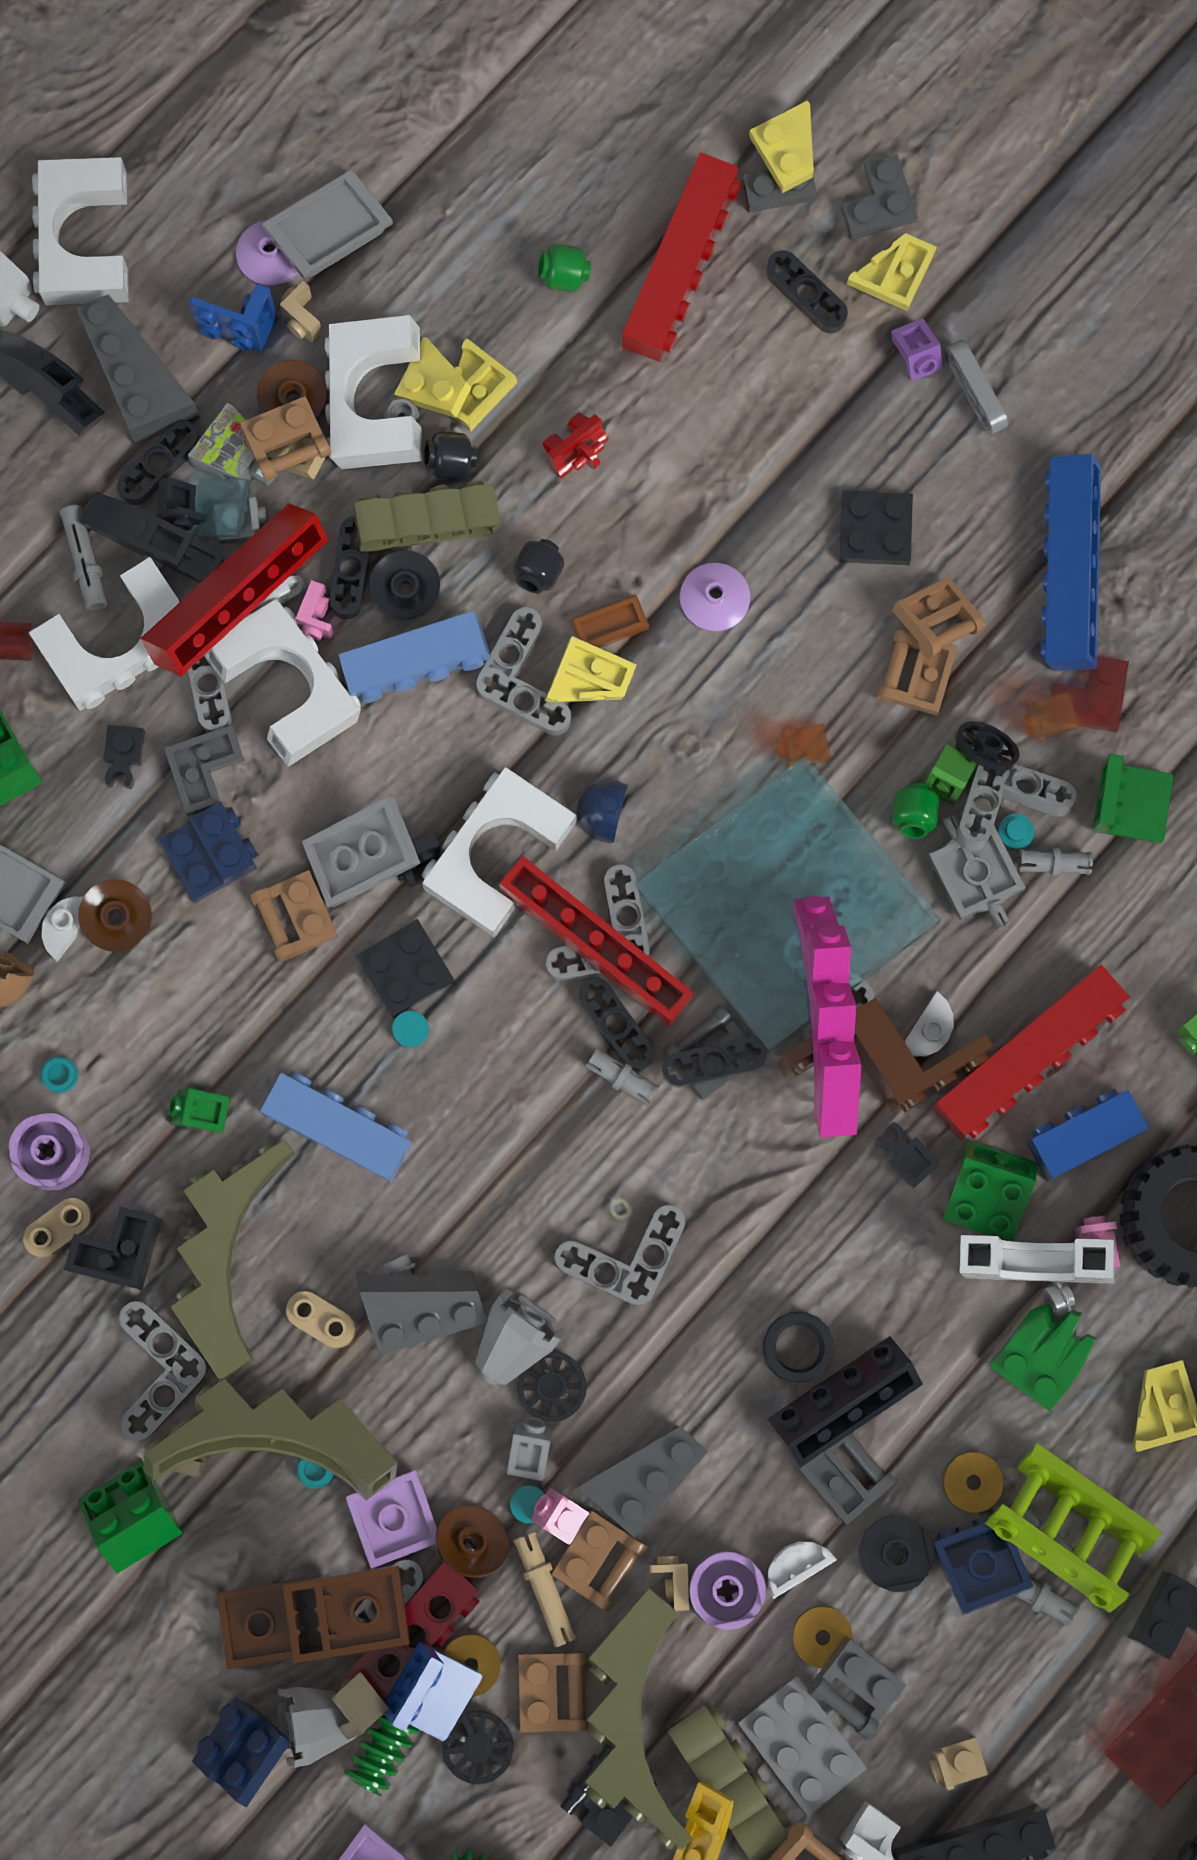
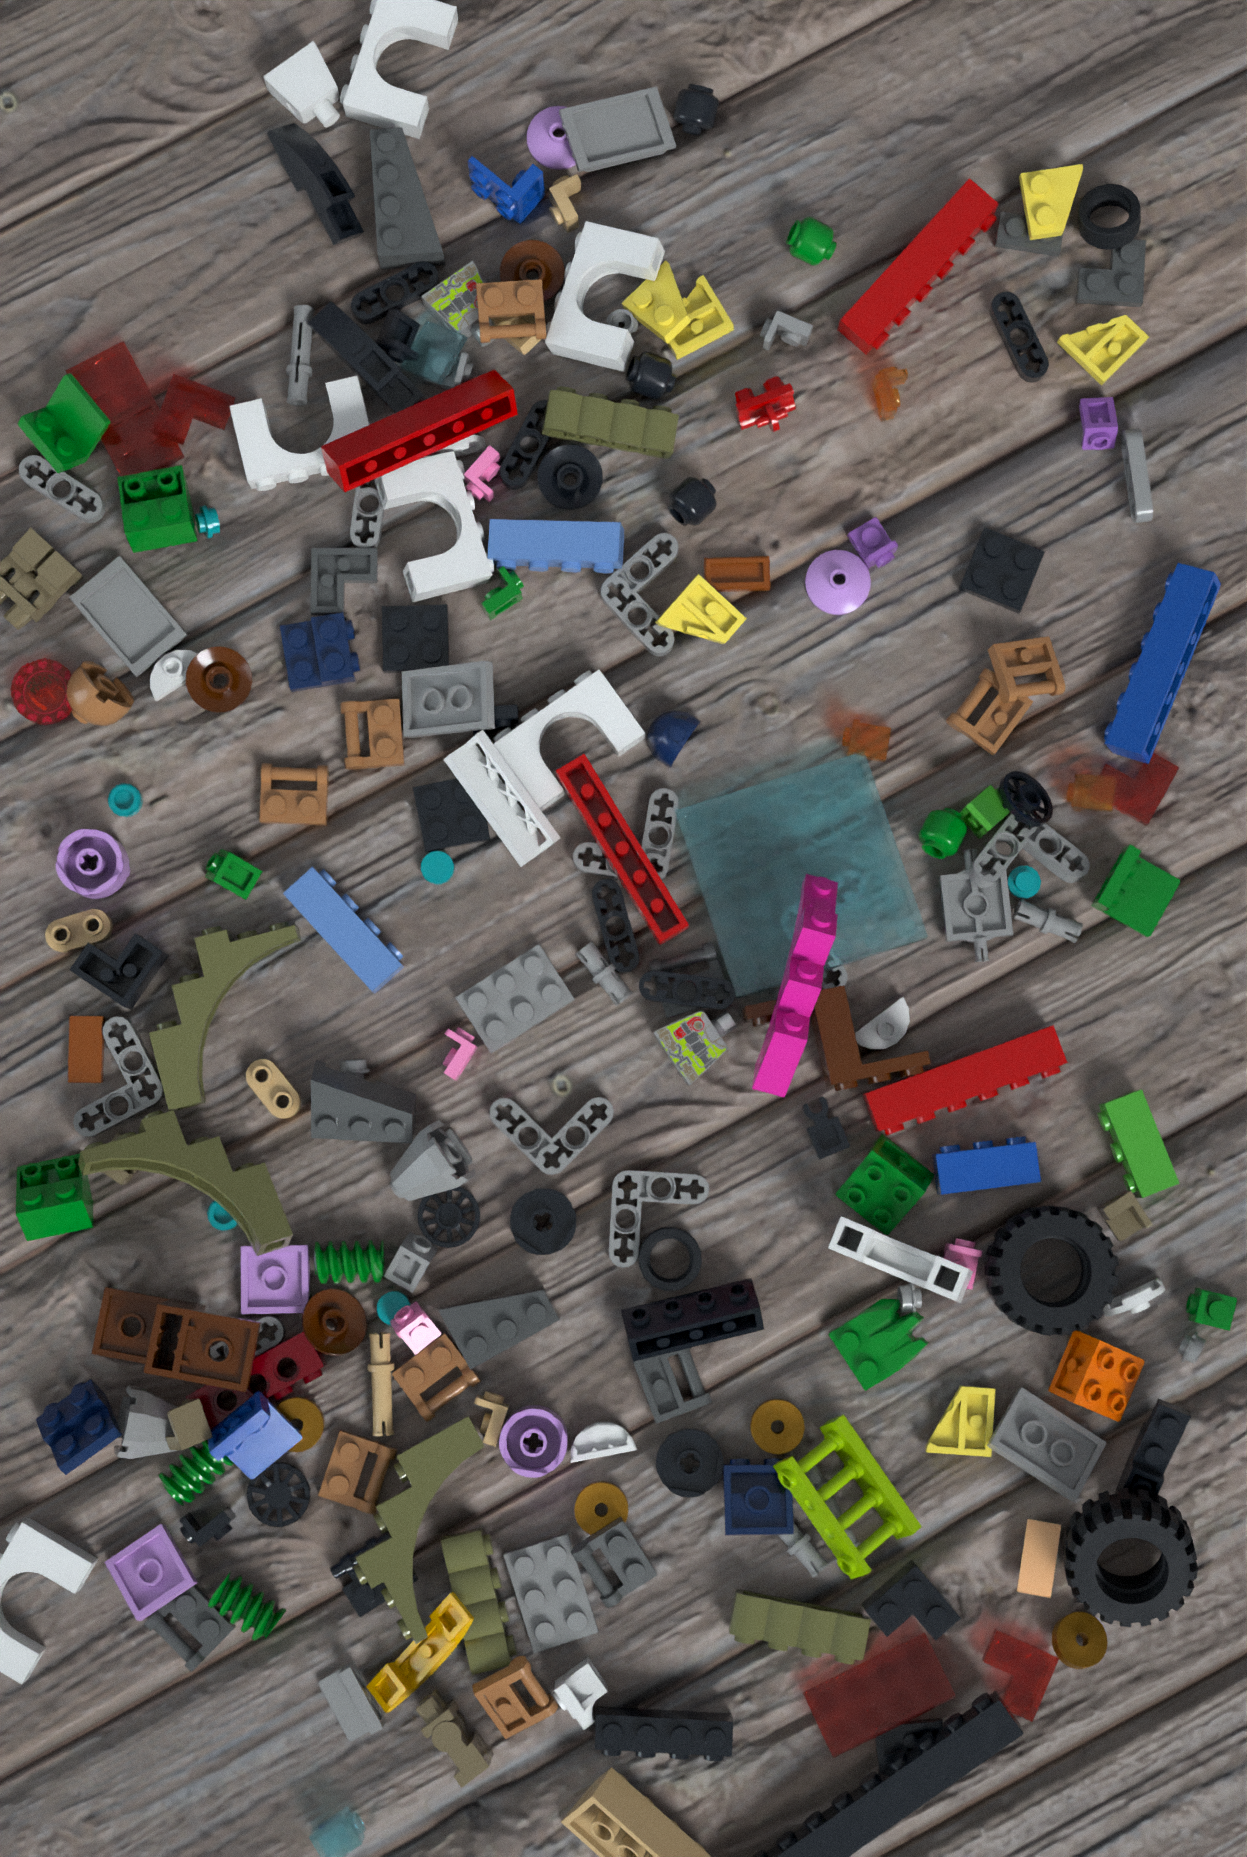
camera: 20 degrees right, 5 degrees up
(46, 758) = (207, 521): none -> teal plate
(109, 1349) = (86, 1049): none -> dark orange tile
(123, 749) = (277, 536): black plate -> none
(238, 1018) = (294, 806): none -> medium nougat plate
(302, 802) = (414, 637): none -> black plate
(378, 733) = (501, 599): none -> green bracket
(400, 177) = (696, 109): none -> black head
(424, 1807) = (216, 1528): none -> black bracket
(451, 936) = (499, 800): none -> white fence
(465, 1472) = (349, 1262): none -> green piece
(502, 1219) = (458, 1059): none -> bright pink bracket
(539, 1135) = (515, 998): none -> light grey plate
(574, 361) = (789, 328): none -> light grey bracket
(670, 1345) = (547, 1240): none -> black plate
(696, 395) = (886, 396): none -> clear orange bracket
(736, 546) = (873, 544): none -> medium lavender bracket
(742, 1114) = (695, 1042): none -> torso
(746, 1289) = (643, 1193): none -> light grey beam
(848, 122) = (1109, 196): none -> black tyre
(957, 1763) = (676, 1655): tan bracket -> none
(1072, 1683) = (799, 1625): none -> olive brick

